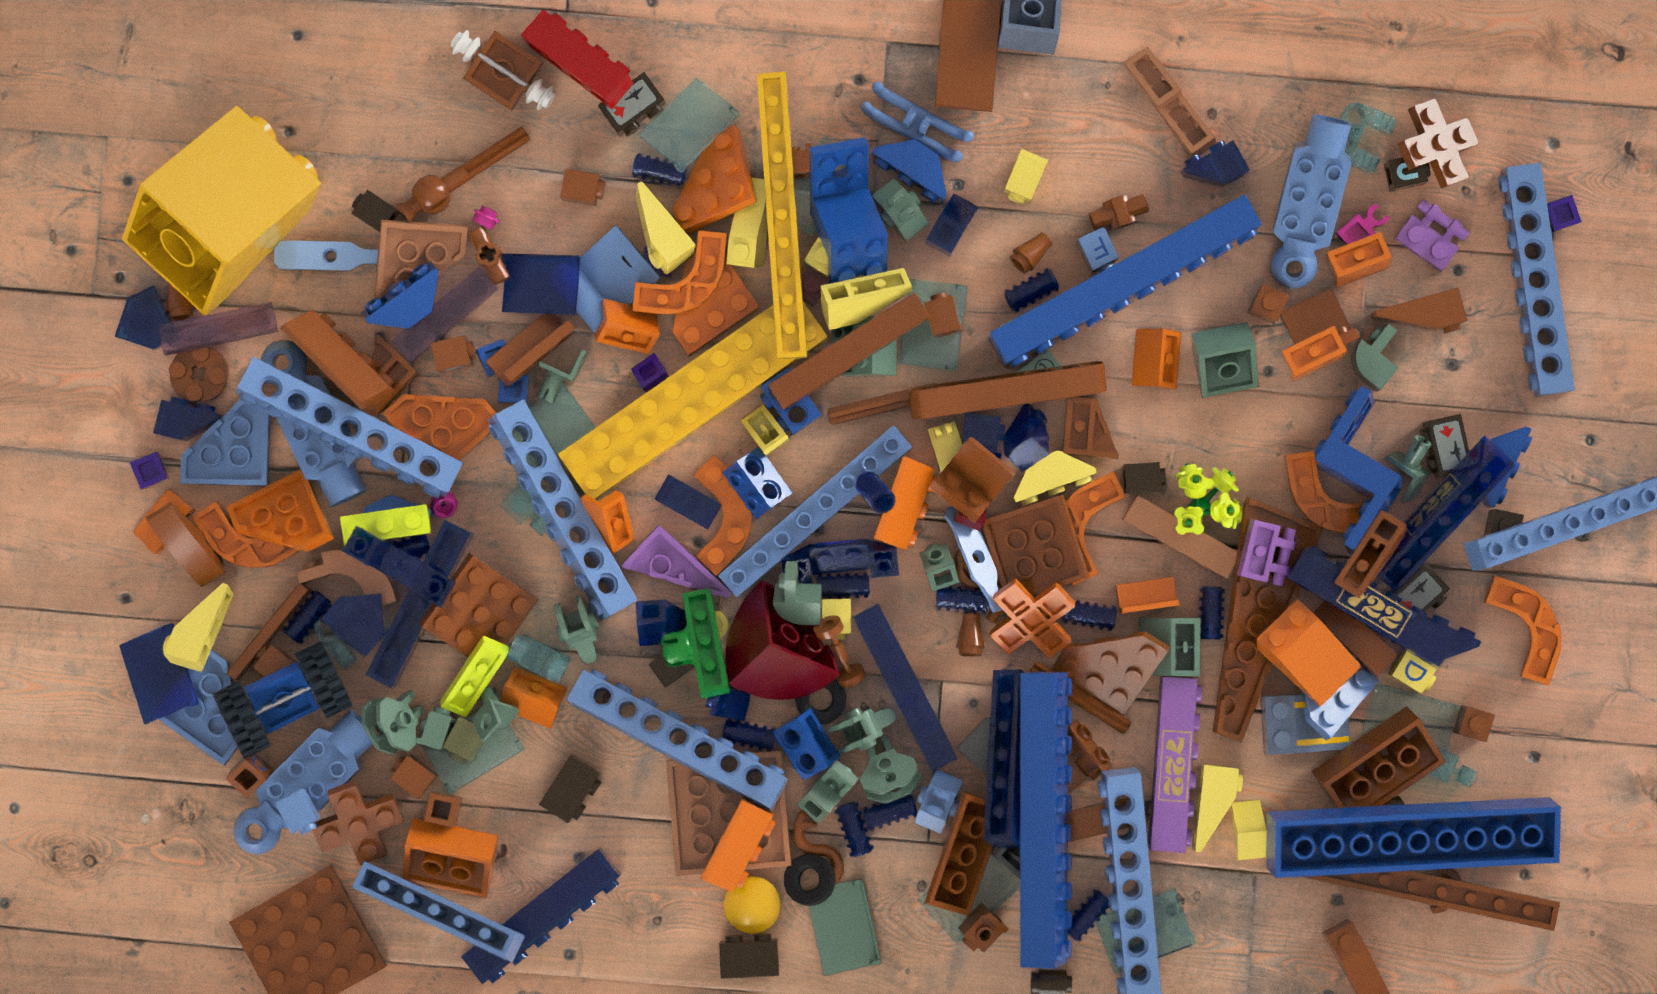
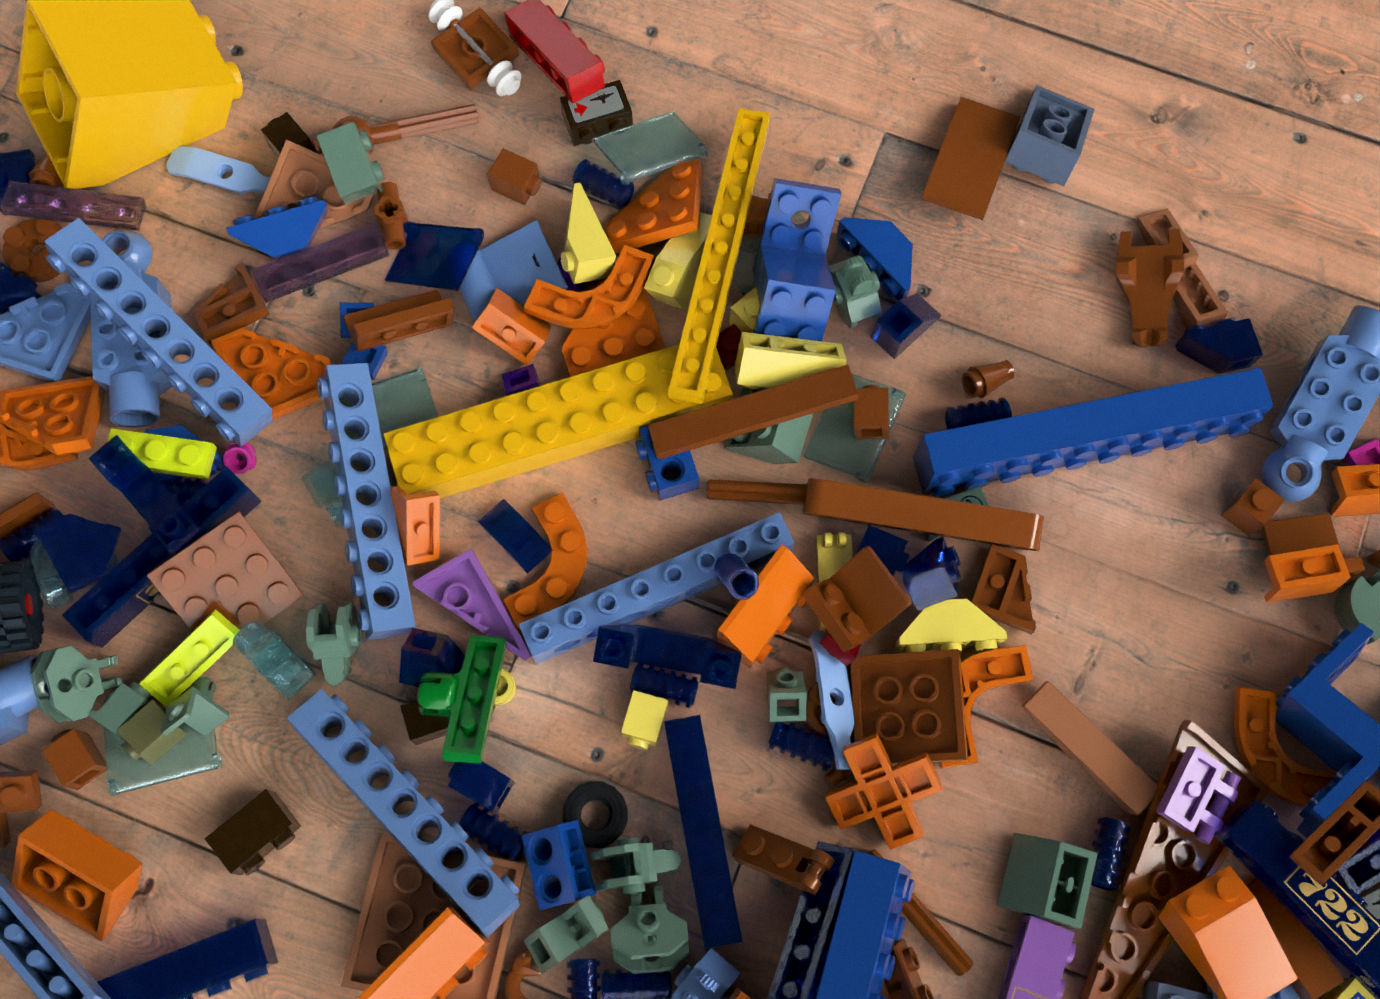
camera: 10 degrees right, 15 degrees down
(338, 562) = (91, 486): nougat arch -> none
(340, 361) = (184, 269): dark orange slope -> none
(443, 809) = (89, 809): dark orange brick -> none
(445, 227) = (350, 162): none -> sand green hinge
(453, 353) = (312, 302): dark orange brick -> none
(485, 217) = (403, 178): dark pink plate -> none
(534, 696) = (253, 706): orange panel -> none
(555, 377) = (416, 357): sand green bracket -> none
(757, 482) = (601, 534): blue brick -> none
(765, 430) = (630, 485): light yellow slope -> none
(774, 655) = (560, 735): dark red brick -> none
(797, 601) = (600, 681): sand green brick -> none
(850, 674) = (639, 795): dark orange wheel -> none
(916, 123) = (894, 210): medium blue piece -> none
(970, 636) = (799, 795): dark orange cone -> none
(970, 690) = (782, 859): none -> dark orange plate
(976, 745) = (770, 934): dark grey slope -> none
(1025, 177) = (1007, 285): light yellow slope -> none
(1091, 615) = (956, 811): clear blue piece -> none
(1097, 250) = (1063, 388): medium blue brick -> none
(1113, 667) = (971, 884): dark orange plate -> none
(1118, 212) = (1098, 363): dark orange axle -> none
(1143, 477) = (1059, 663): dark brown brick -> none
(1145, 126) = (1149, 281): none -> dark orange animal
(1146, 595) = (1030, 808): orange panel -> none
(1156, 358) = (1105, 532): orange panel -> none
(1195, 487) = (1128, 685): neon yellow plant -> none
(1225, 359) = (1188, 556): sand green slope -> none

